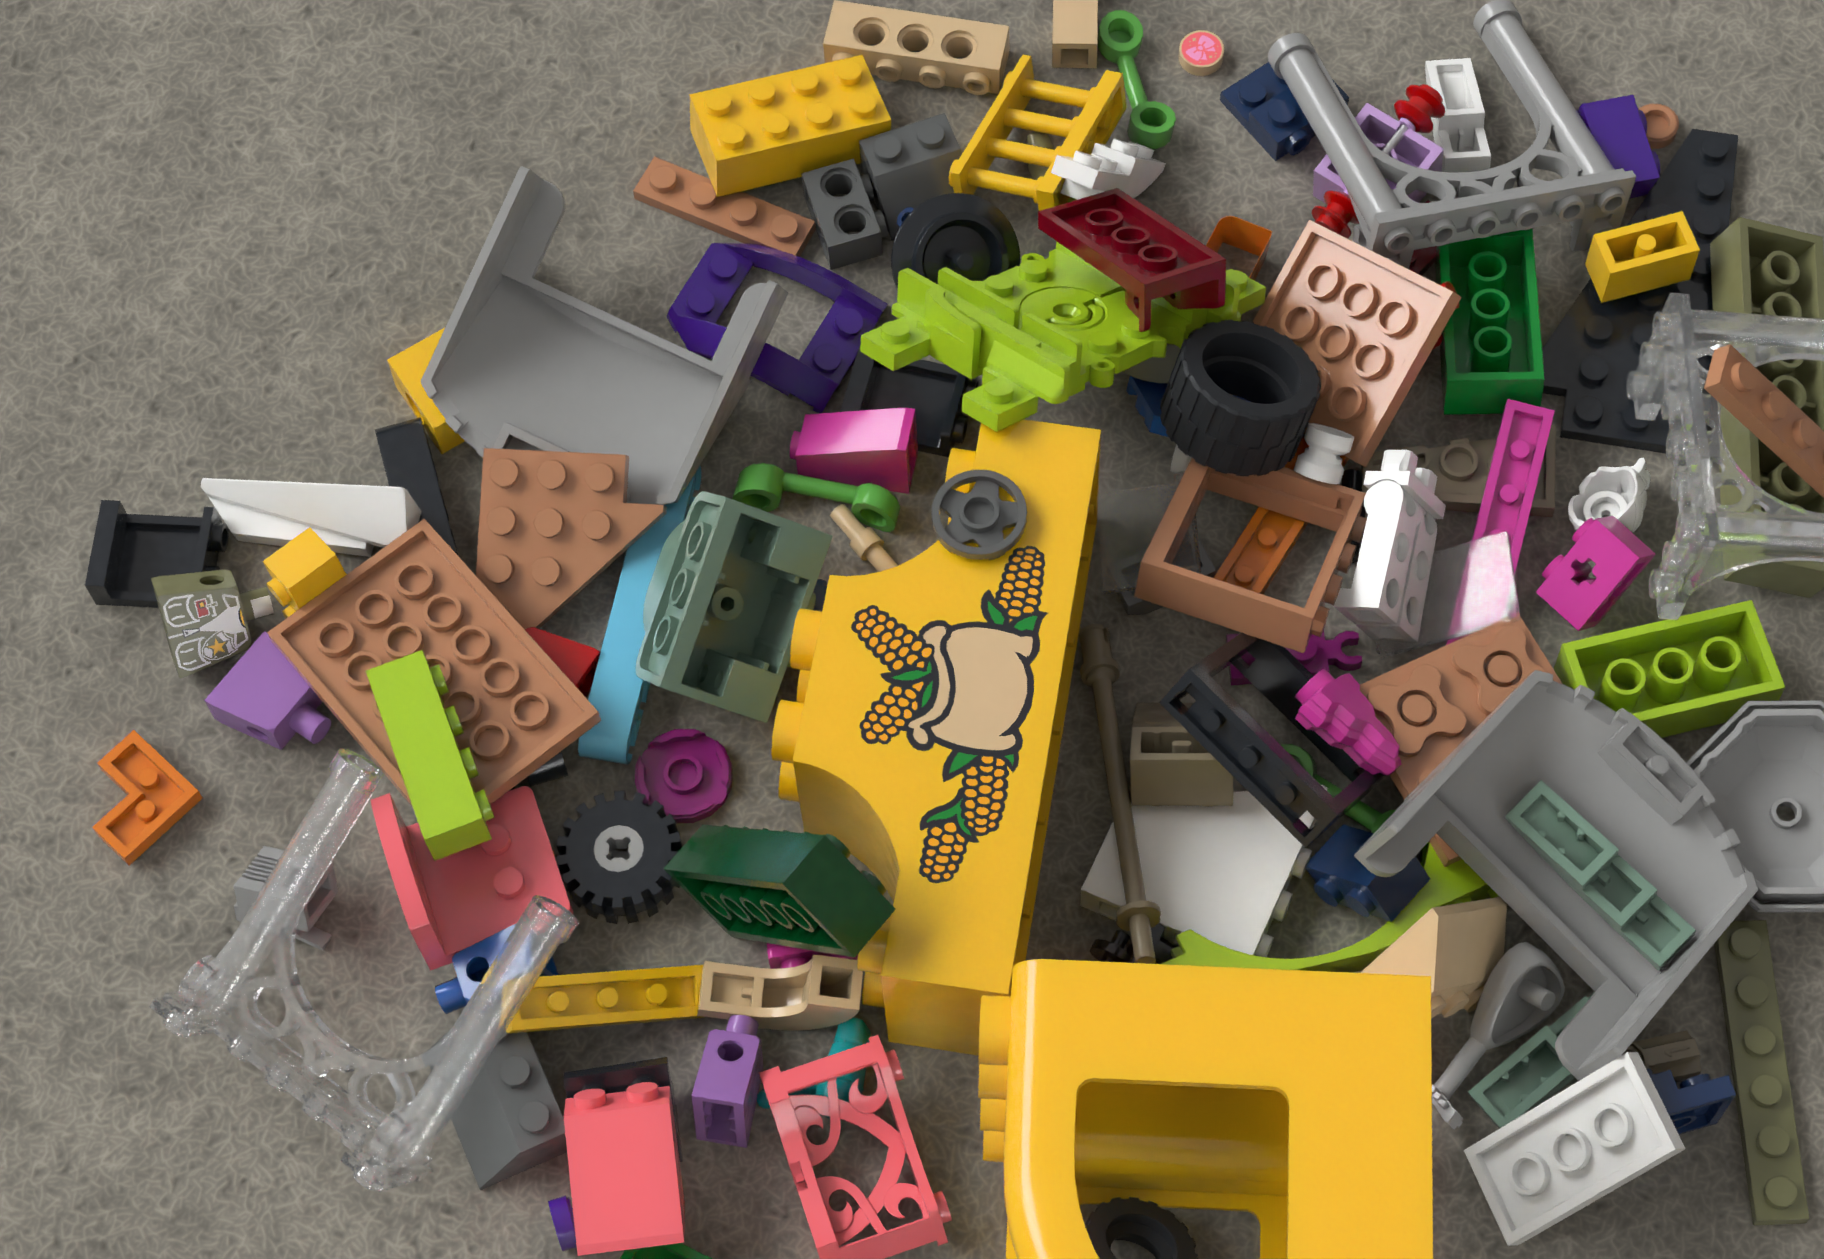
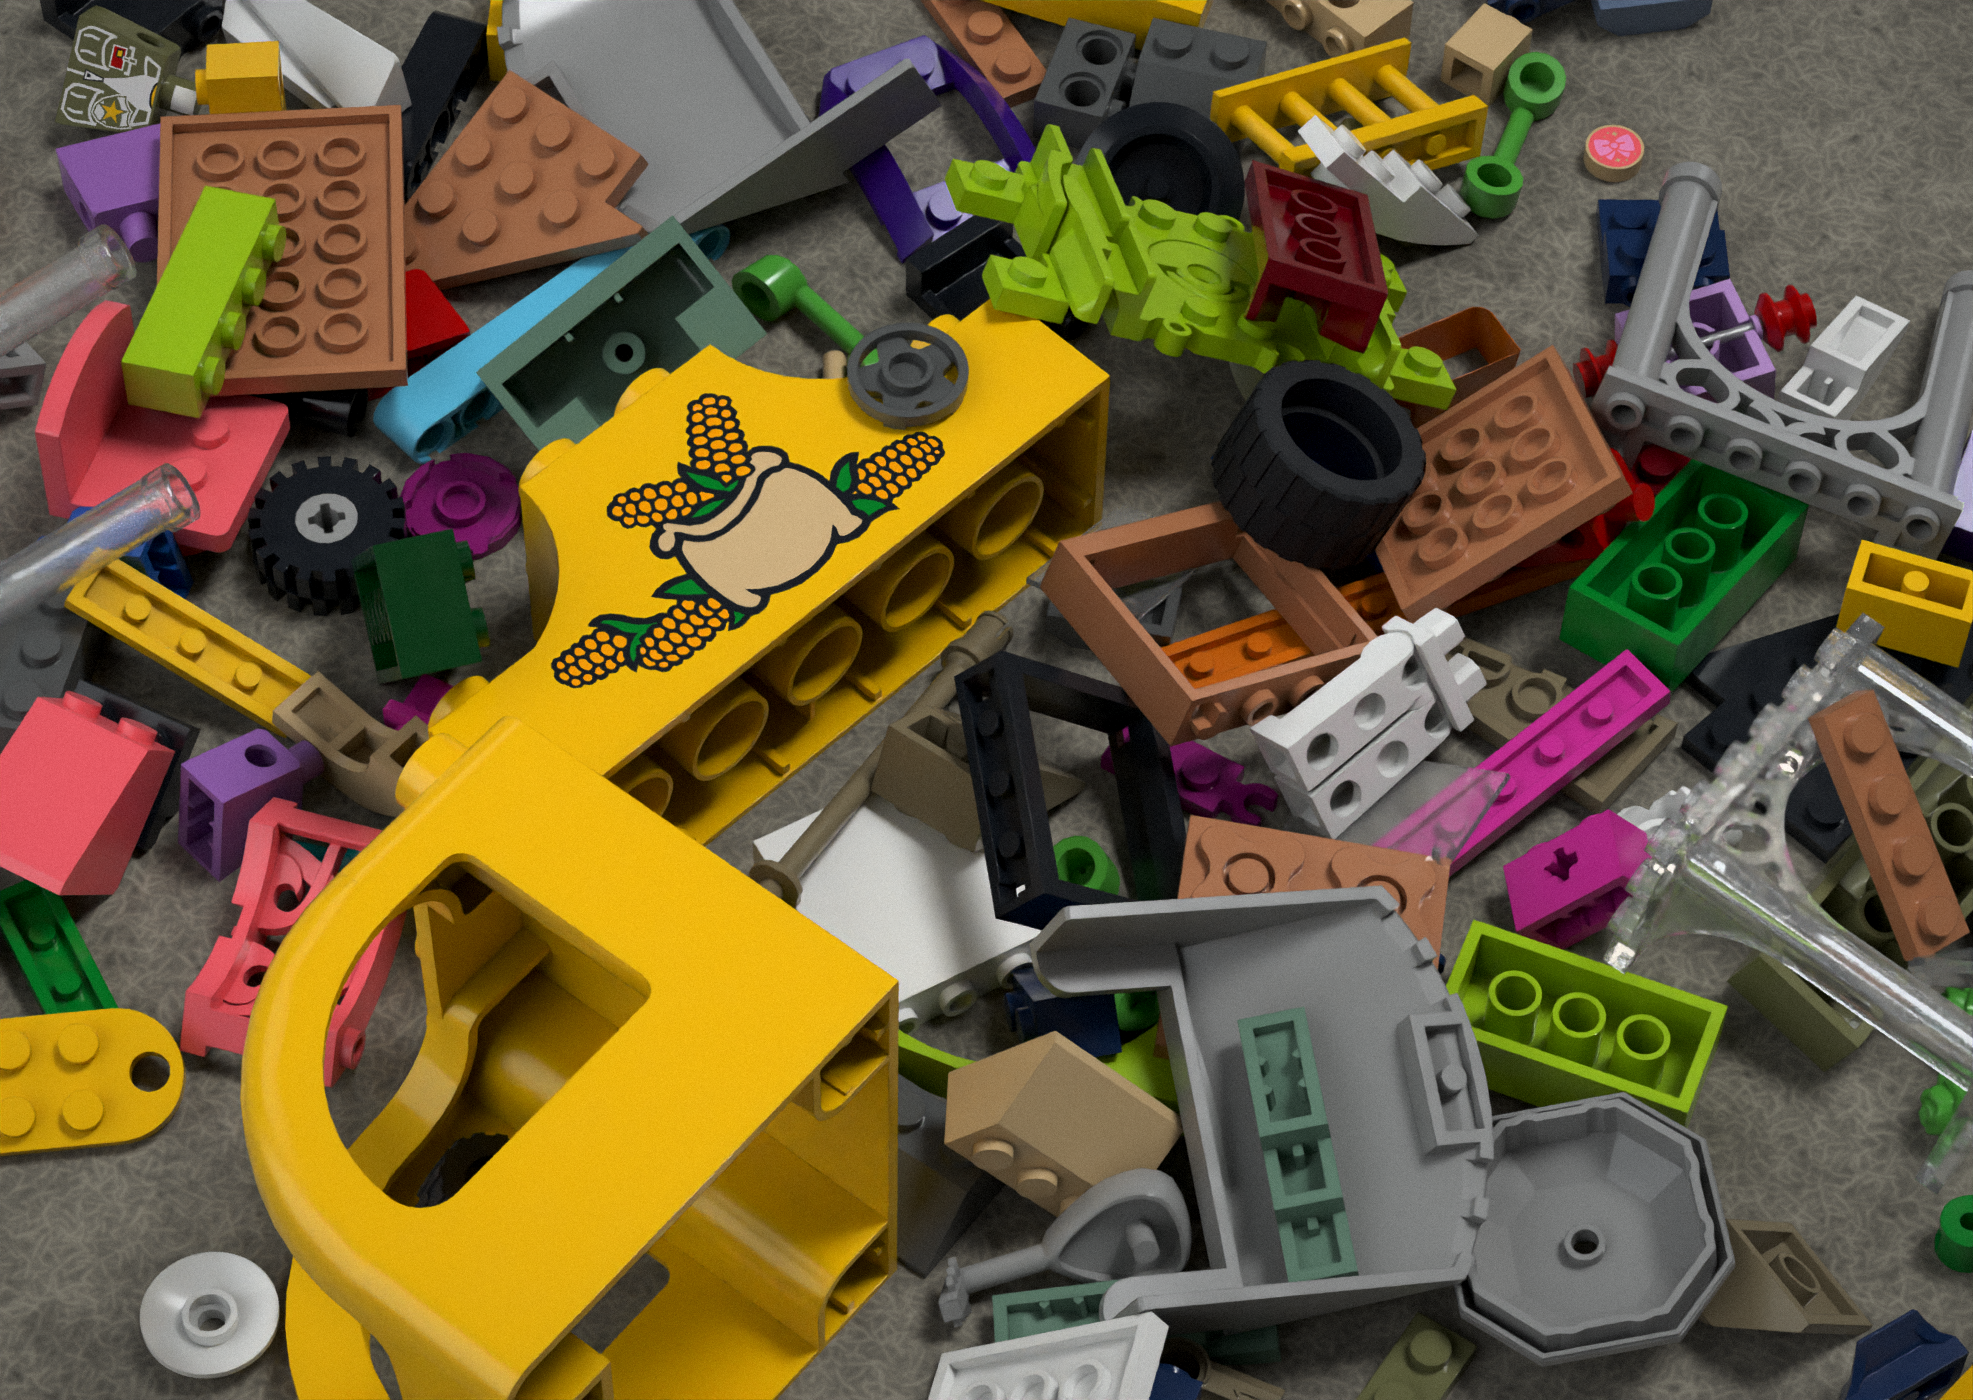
camera: 30 degrees right, 10 degrees down
(859, 447) = (891, 287): dark pink slope -> none
(1322, 457) = (1370, 578): white wheel -> none
(1347, 721) = (1154, 827): dark pink rock -> none

